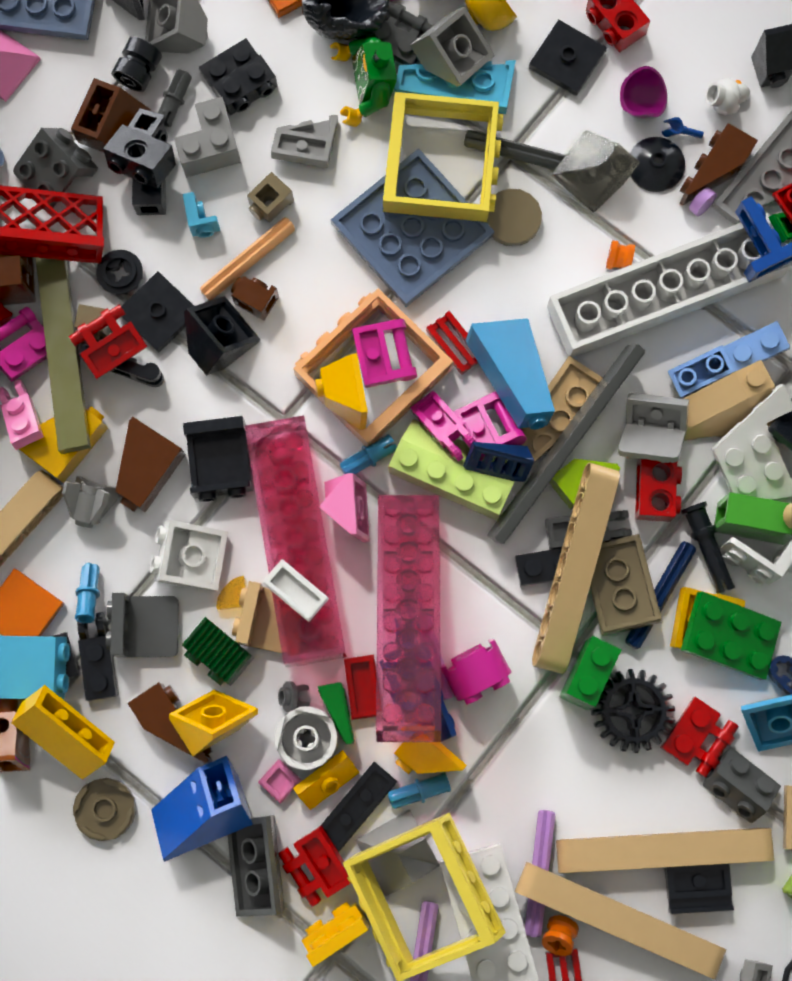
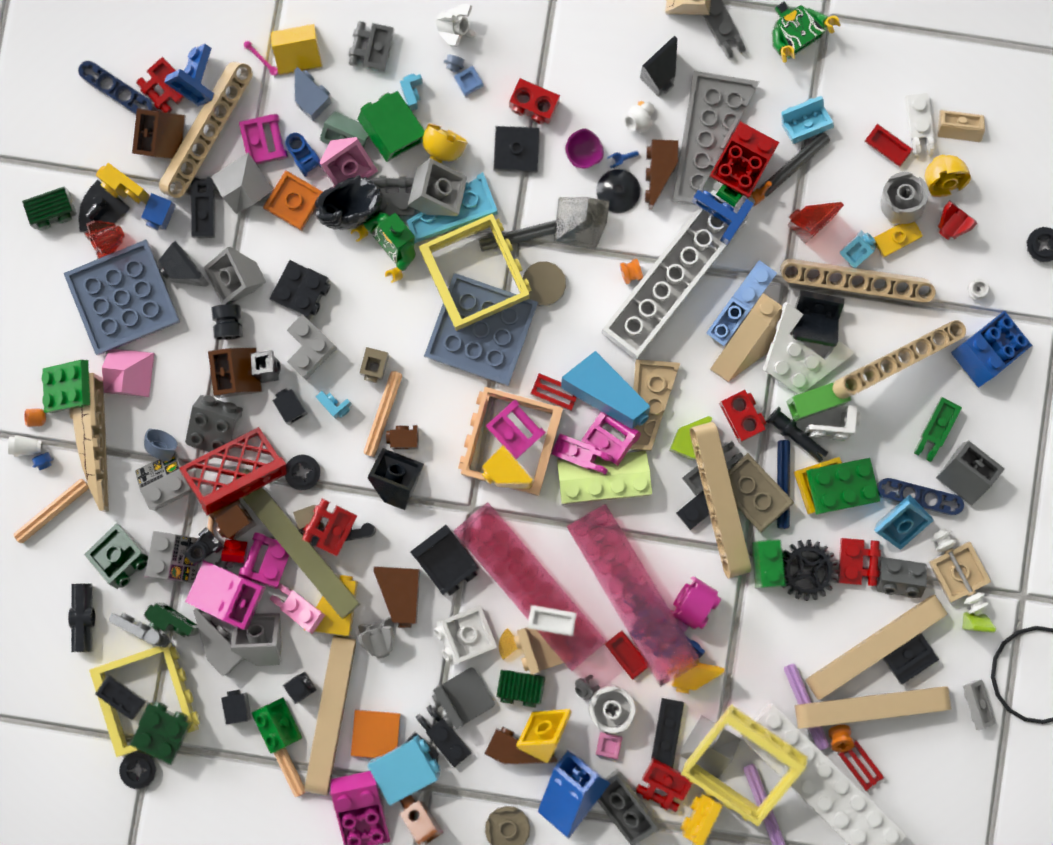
camera: 30 degrees left, 5 degrees up
(63, 732) = (455, 796): yellow brick -> none
(87, 593) = (413, 698): dark azure axle -> none
(139, 156) = (261, 383): black brick -> none
(157, 311) = (344, 484): black plate -> none
(174, 96) = (265, 329): dark grey axle -> none
(305, 142) = (375, 310): light grey wing -> none
(326, 780) = (639, 728): yellow plate -> none
(336, 703) = (617, 676): green slope -> none
(347, 504) = (549, 544): bright pink slope -> none
(368, 456) = (542, 502): dark azure axle -> none
(419, 791) = (701, 700): dark azure axle -> none
(516, 469) = (639, 455): dark blue slope -> none
(566, 443) = (668, 421): dark grey tile -> none
(654, 428) = (719, 378): light grey bracket -> none
(702, 201) = (664, 201): lavender tile -> none

